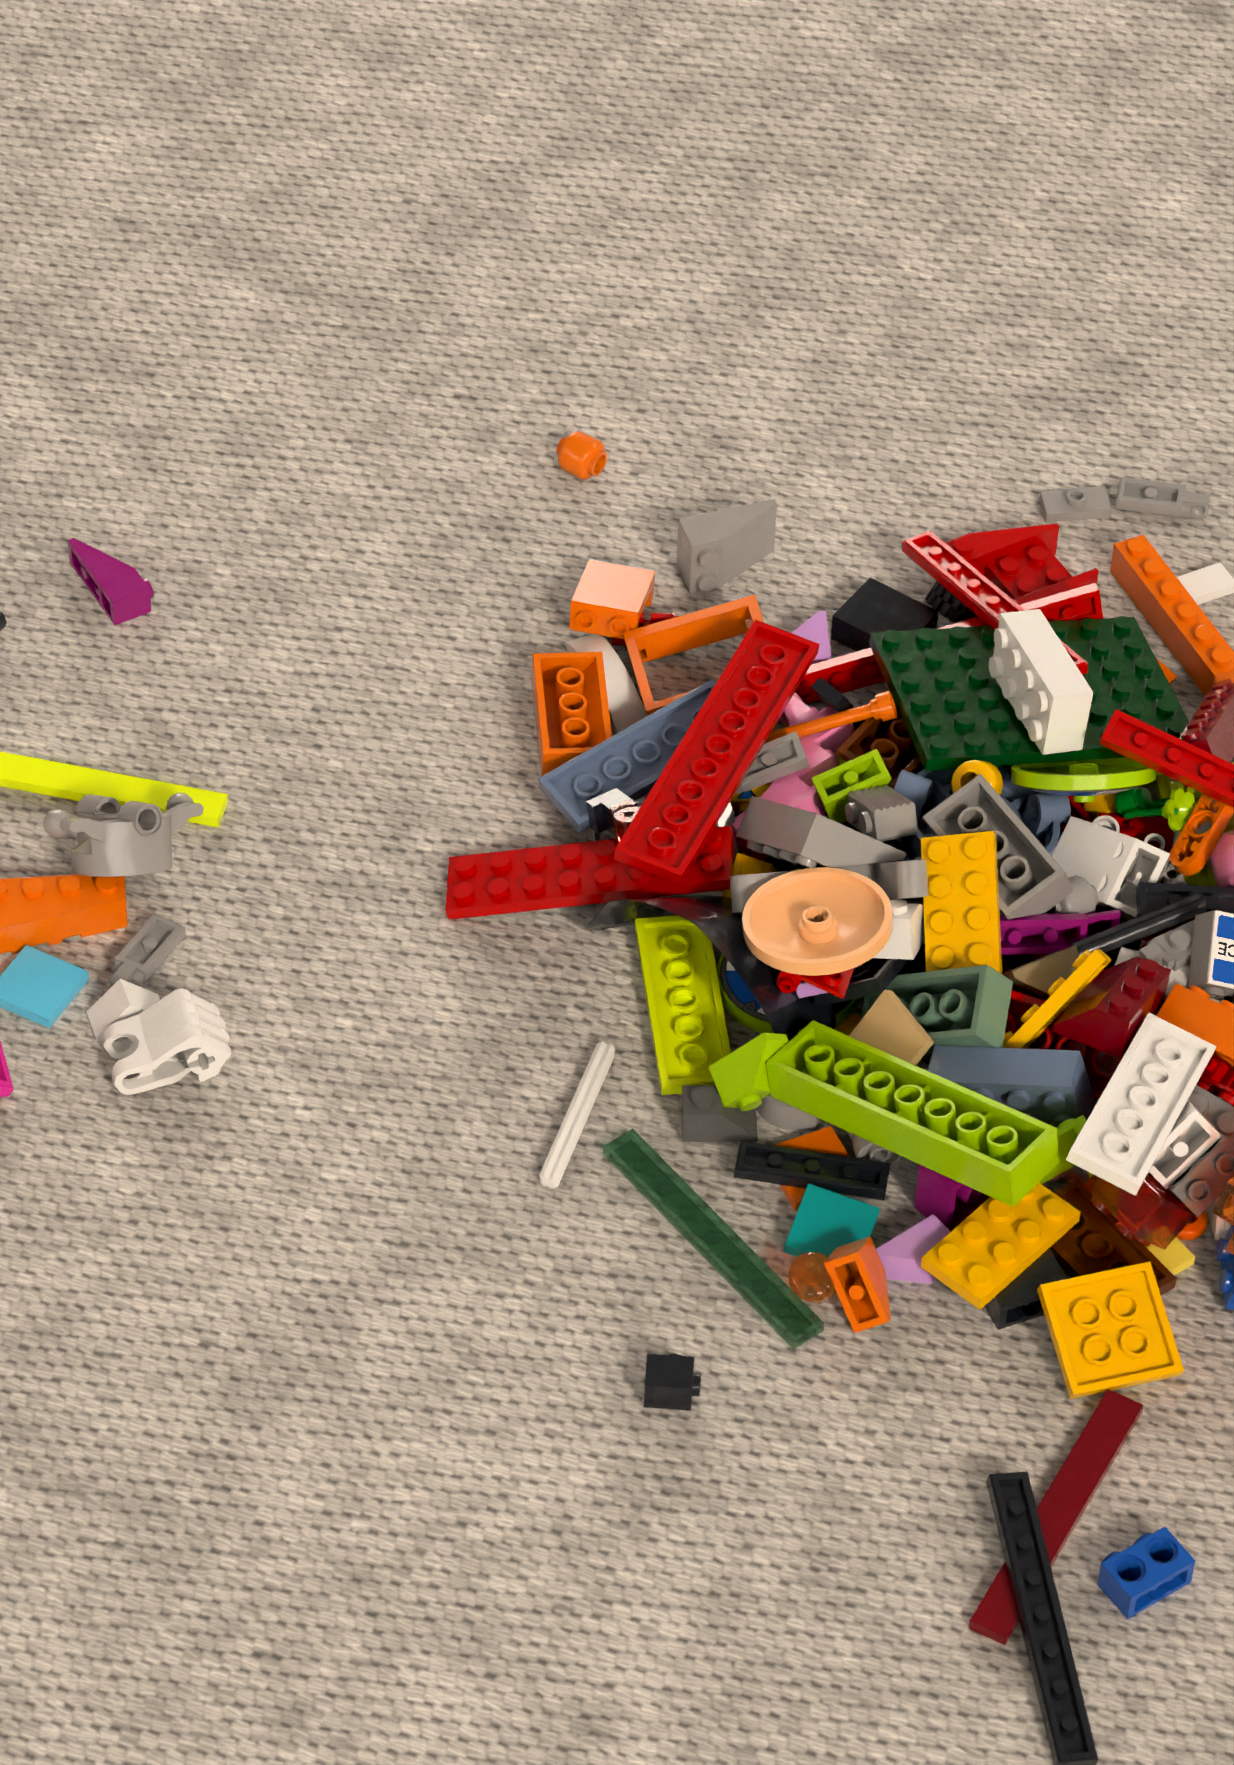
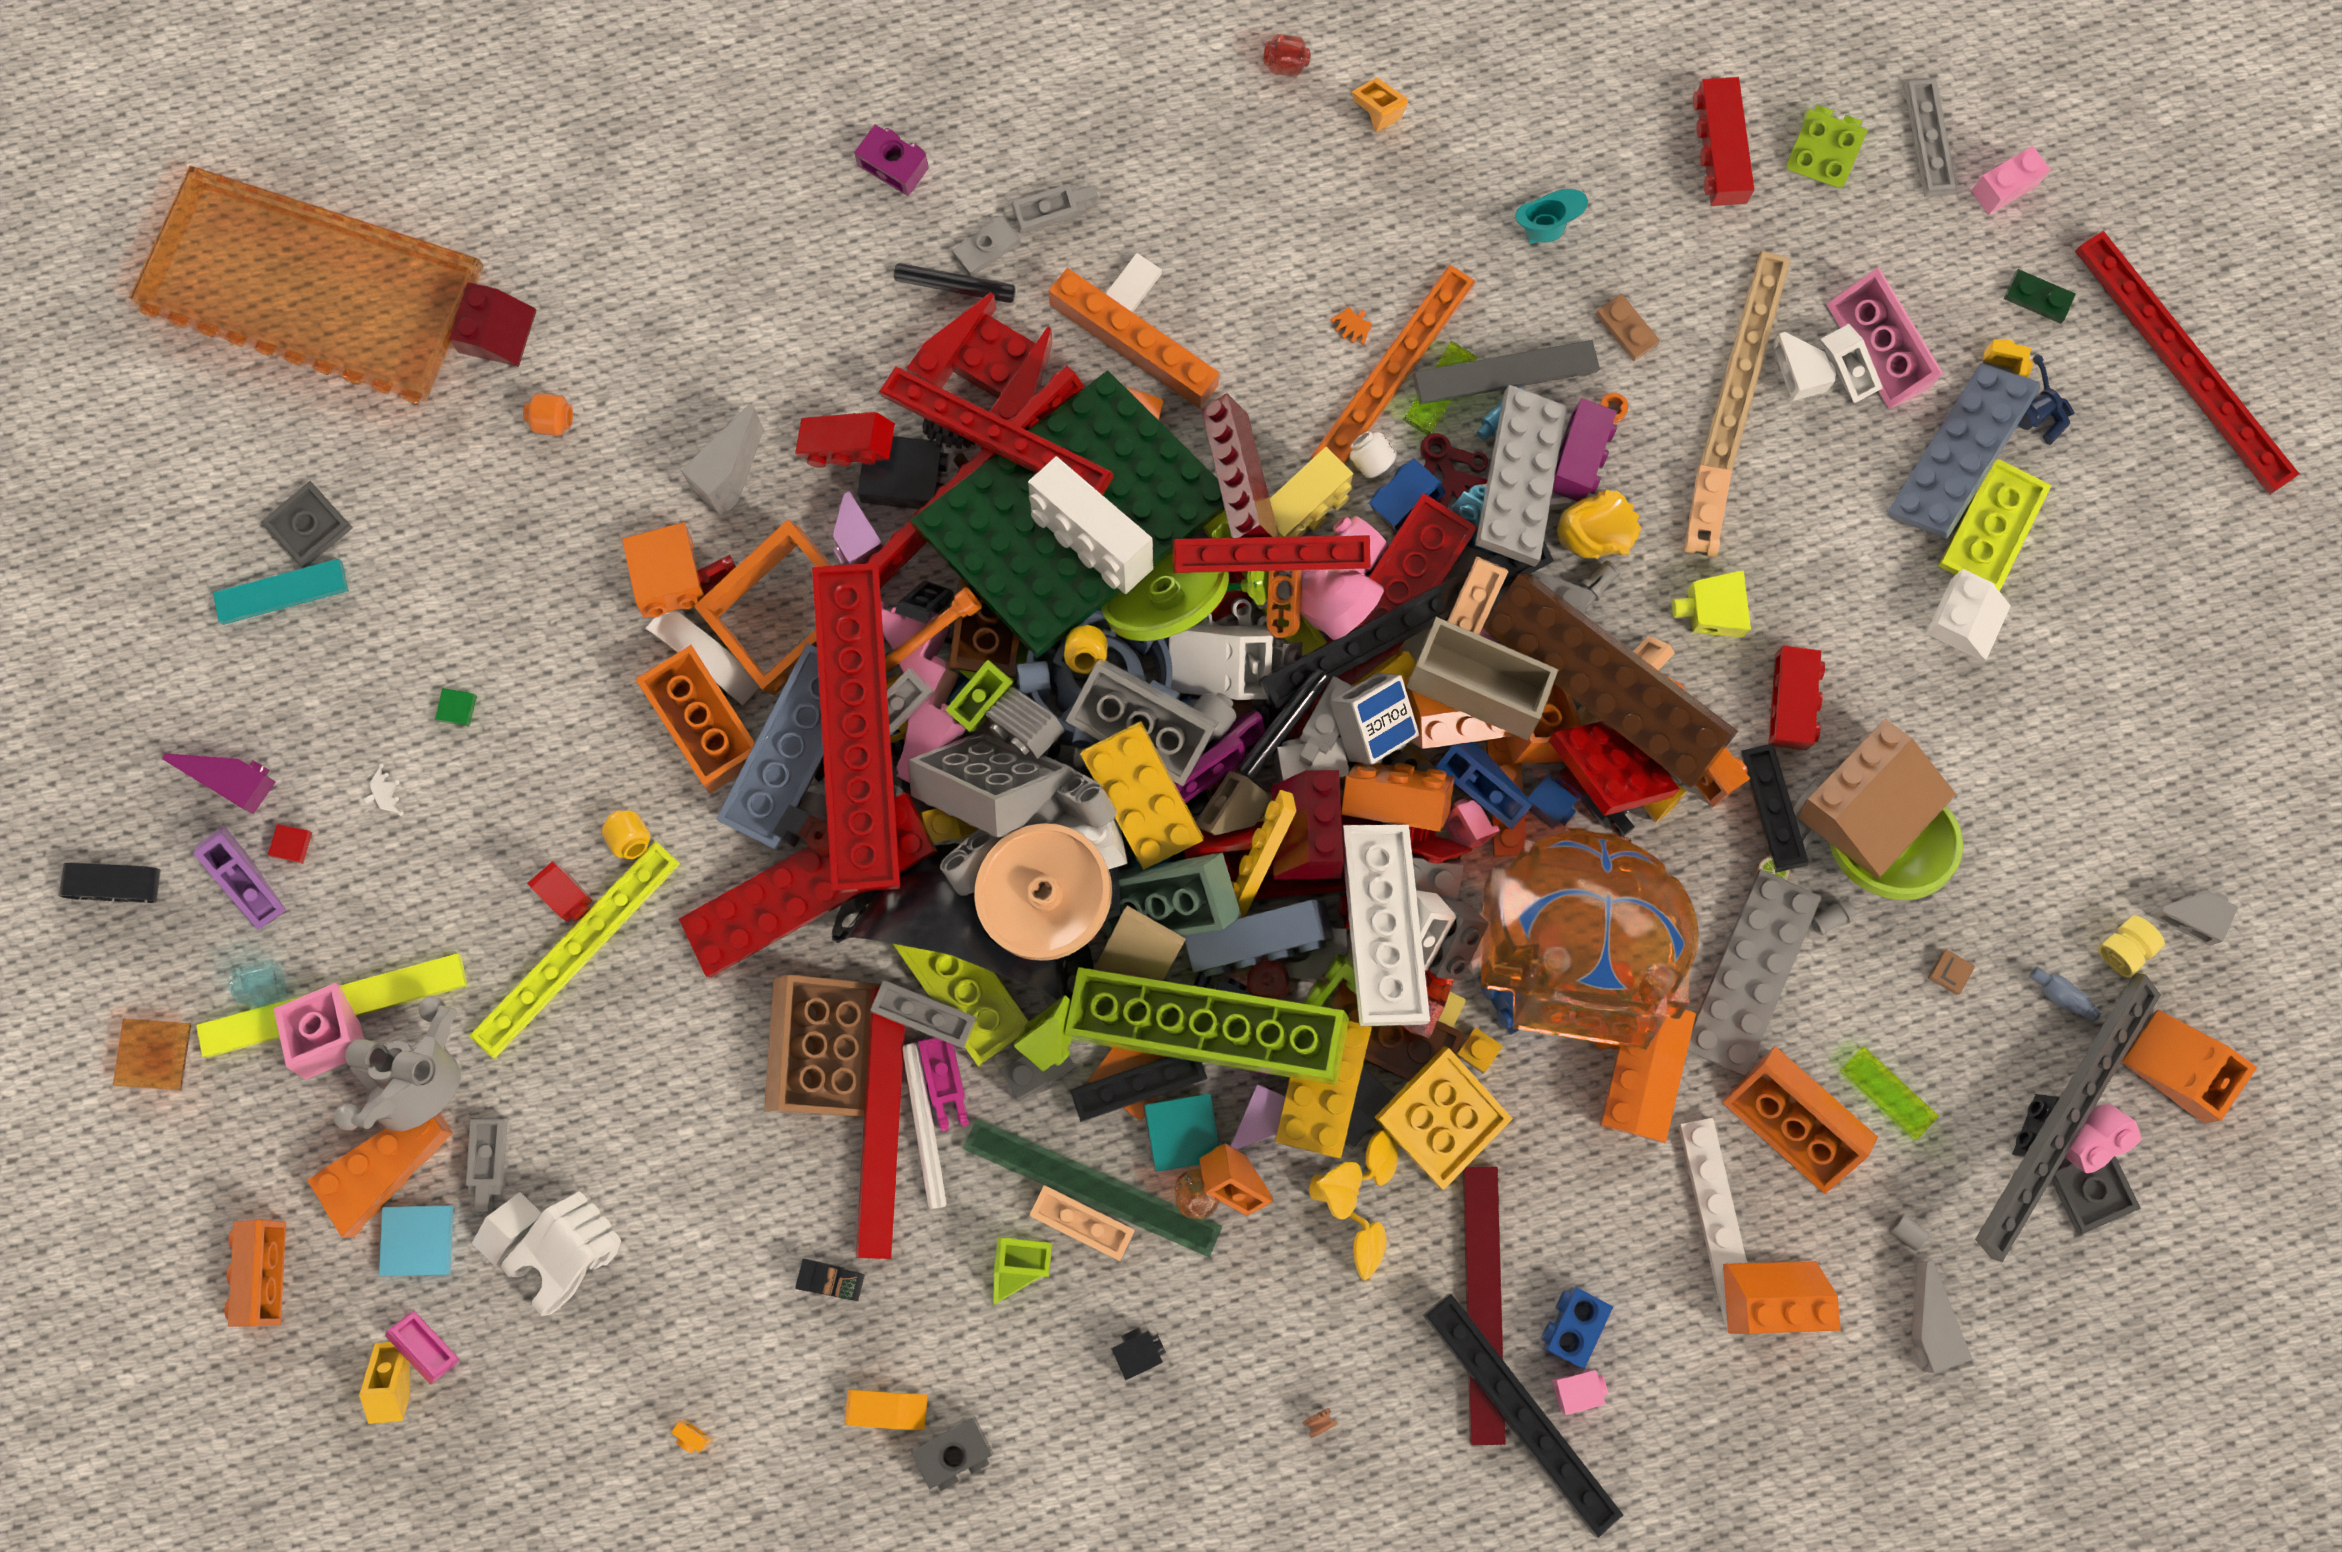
camera: 30 degrees left, 30 degrees up
(34, 734) = (258, 983): none -> clear light blue brick
(60, 783) = (317, 1031): none -> bright pink slope
(72, 654) = (238, 877): none -> medium lavender slope
(132, 656) = (290, 843): none -> red tile
(188, 1242) = (690, 1437): none -> light orange plate
(241, 656) = (383, 792): none -> white piece
(252, 482) = (280, 591): none -> teal tile
(308, 447) = (306, 524): none -> dark grey tile
(336, 841) = (574, 950): none -> neon yellow tile
(351, 625) = (455, 707): none -> green tile
(355, 780) = (560, 892): none -> red slope
(400, 1310) = (886, 1409): none -> light orange slope
(403, 1185) = (829, 1280): none -> black leg
(429, 287) = (305, 284): none -> clear orange windscreen
(432, 1373) = (932, 1460): none -> dark grey brick
(443, 773) = (626, 834): none -> yellow head
(521, 1007) = (818, 1046): none -> medium nougat slope
(535, 1093) = (880, 1137): none -> red tile
(572, 375) = (492, 325): none -> dark red slope
(595, 1256) = (1018, 1265): none -> lime slope
(621, 1084) = (943, 1079): none -> dark pink hinge
(636, 1016) = (923, 1014): none -> light grey plate
(683, 1256) = (1082, 1223): none -> light nougat plate
(820, 1526) = (1320, 1423): none -> nougat bush
(847, 569) = (845, 439): none -> red brick
(966, 1292) = (1340, 1192): none -> yellow plant
(1023, 514) = (953, 282): none -> black axle
(1024, 406) = (899, 174): none -> magenta brick
(1115, 1626) = (1579, 1391): none -> bright pink brick
(1185, 1306) = (1479, 1050): none -> yellow plate

